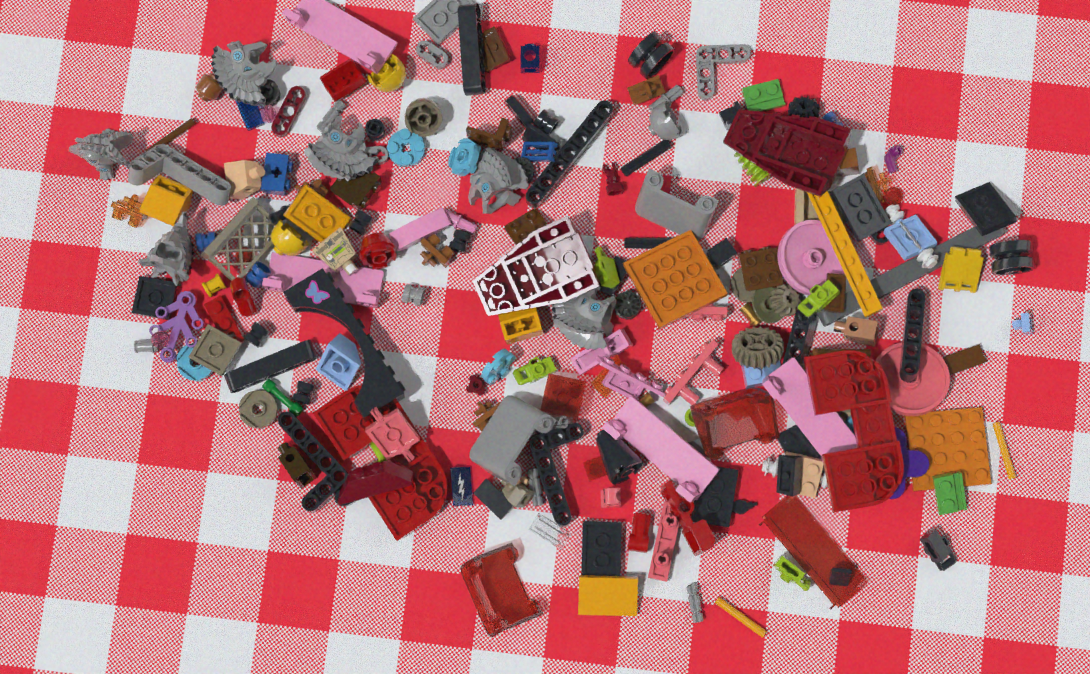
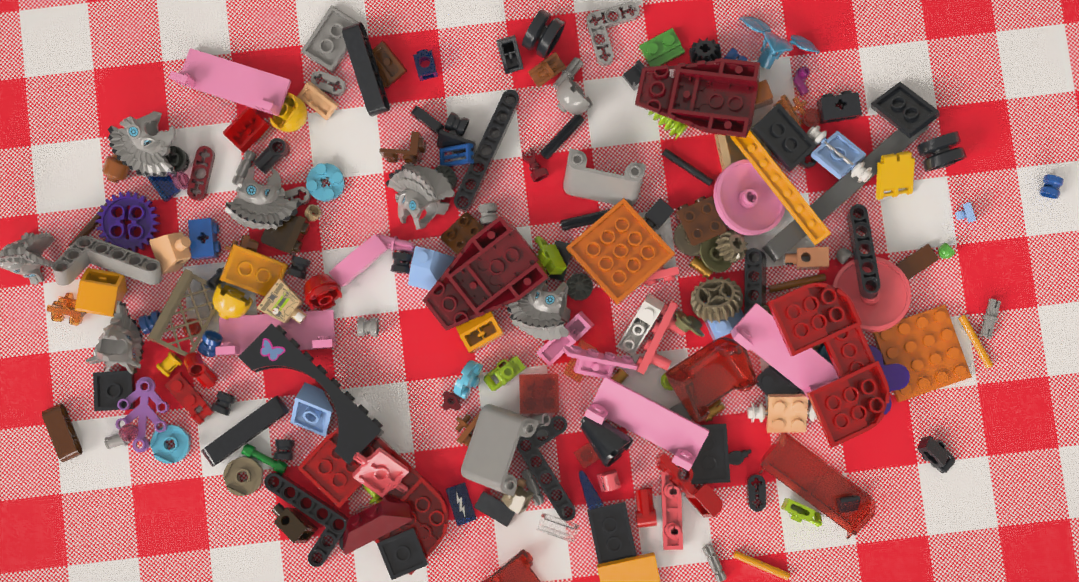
camera: 15 degrees left, 5 degrees up
(95, 326) = (62, 432): none -> reddish brown beam
(191, 137) = (110, 221): none -> dark purple gear
(215, 350) = (186, 429): dark tan tile -> none
(359, 111) = (270, 157): none -> black piece
(375, 134) = (293, 175): black wheel -> none
(386, 170) = (312, 209): none -> tan hinge
(394, 517) = (402, 553): none -> black plate
(418, 68) = (318, 100): none -> light nougat plate
(423, 117) = (334, 148): dark tan cylinder -> none
(430, 245) = (372, 273): dark orange hips -> none
(470, 151) = (385, 179): medium azure plate -> none
(484, 251) = (427, 267): none -> light blue slope
(556, 212) = (488, 213): none -> light grey wheel
(589, 505) = (592, 498): none -> clear blue slope
(613, 67) = (509, 54): none -> black slope
(678, 355) = (641, 324): none -> white slope
(722, 363) = (688, 323): none -> olive plate
(730, 454) = (714, 411): none -> pearl gold pin
(747, 544) = (761, 491): none -> black beam
(760, 215) = (687, 167): none -> black bar
(789, 475) = (777, 417): black slope -> none
(819, 298) = (766, 237): lime piece -> none
(837, 303) = (779, 227): reddish brown tile -> none
(872, 115) = (775, 43): none -> dark azure plant
(893, 336) = (843, 255): none -> light grey hinge
(913, 196) = (830, 113): none -> black brick
(949, 493) = (934, 396): bright green plate -> none
(995, 356) = (945, 251): none -> bright green hinge
(1023, 431) = (990, 318): none -> light grey pin

